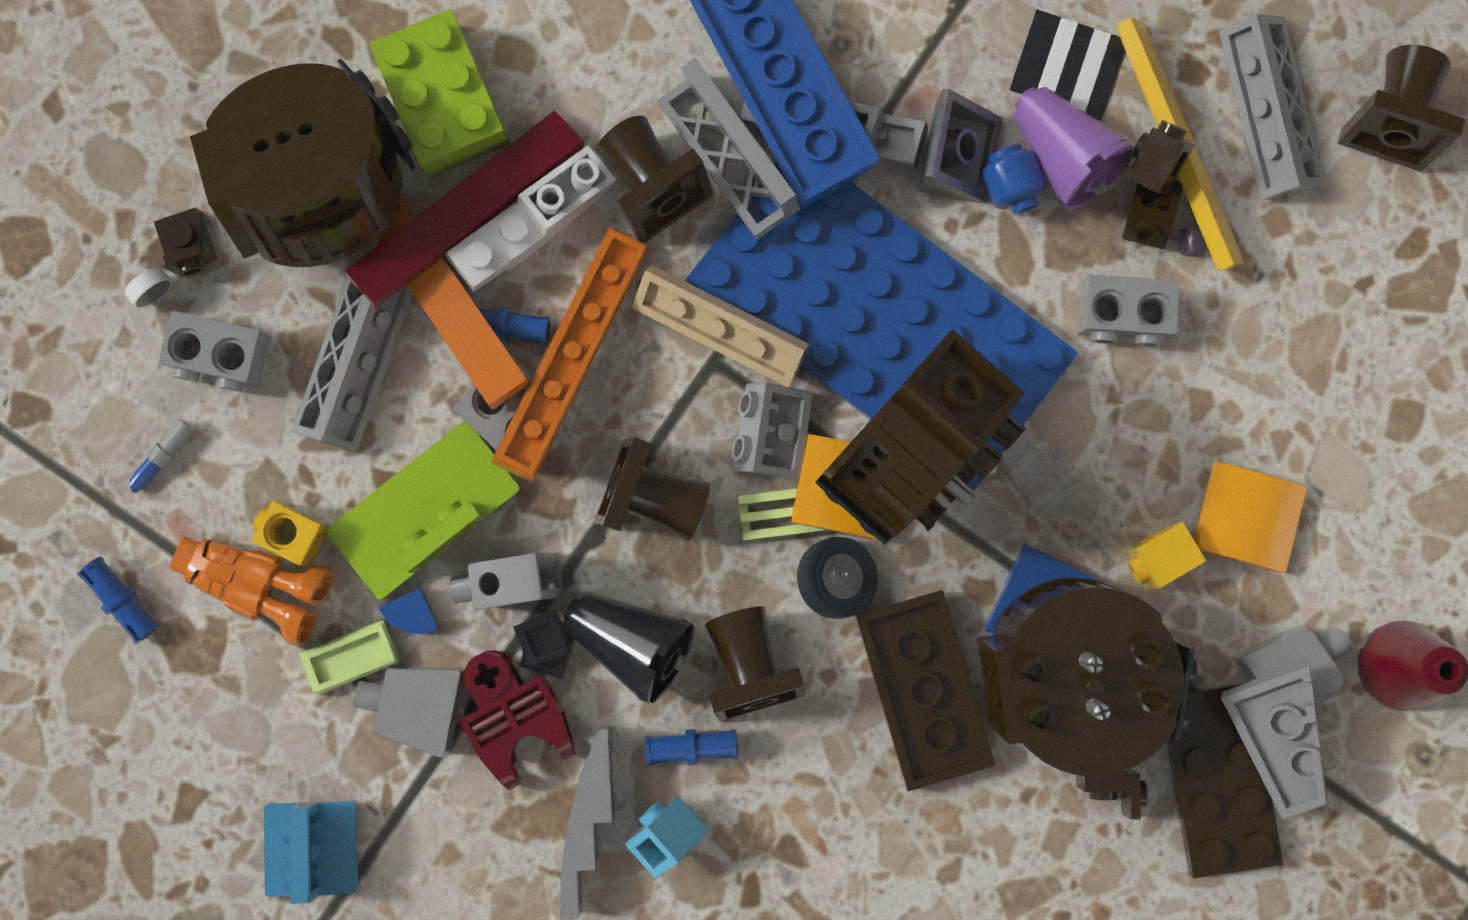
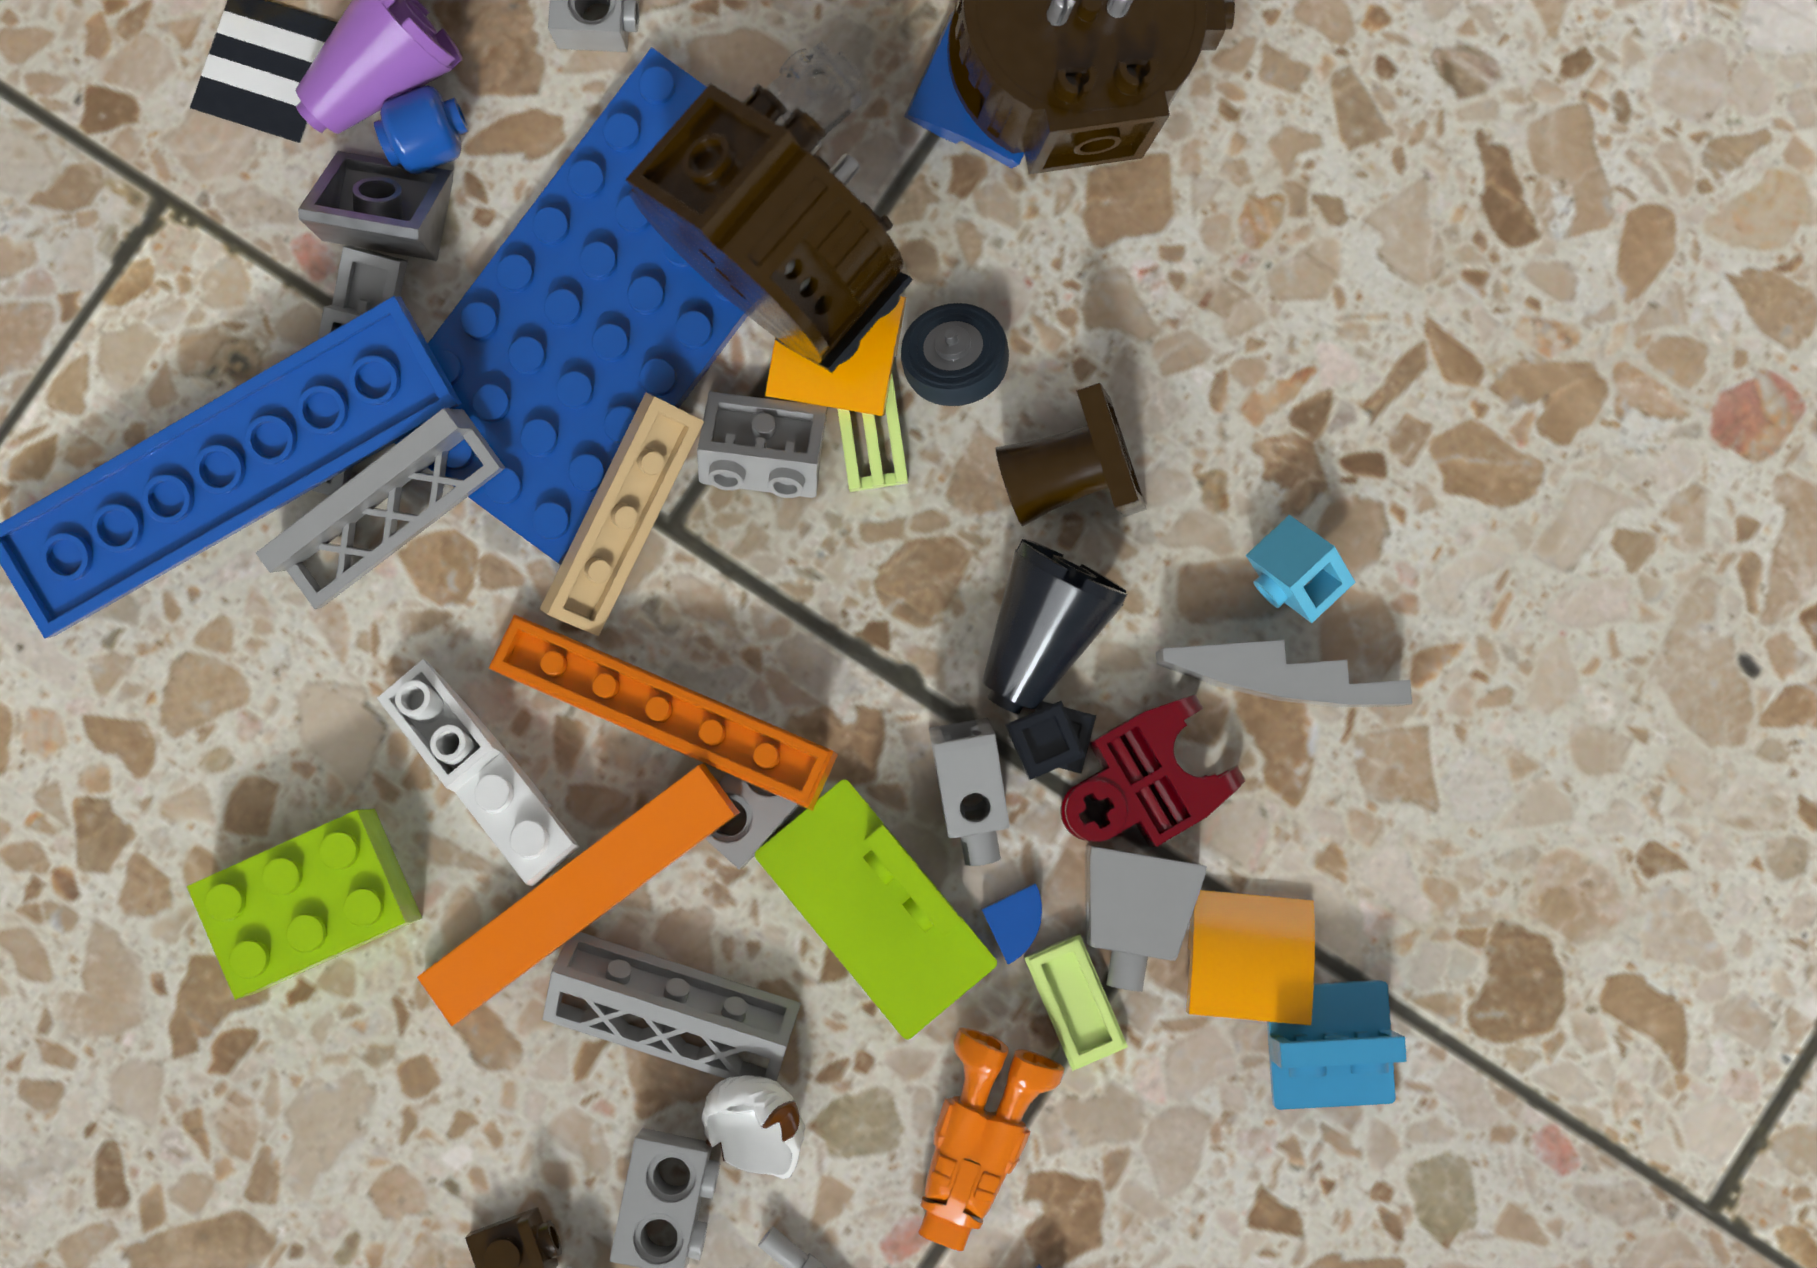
camera: 90 degrees left, 0 degrees up
(266, 417) = (754, 1125): none -> white hair
(303, 164) = (403, 1078): dark brown piece -> none
(306, 542) = (914, 1061): yellow brick -> none
(377, 791) = (1251, 957): none -> light orange slope
(463, 209) = (466, 862): dark red tile -> none
(518, 326) = (625, 785): blue pin -> none
(651, 494) = (850, 597): dark brown plant -> none
(659, 188) = (433, 599): dark brown plant -> none
(691, 747) = (1181, 541): blue pin -> none
(925, 690) = (1098, 240): dark brown plate -> none

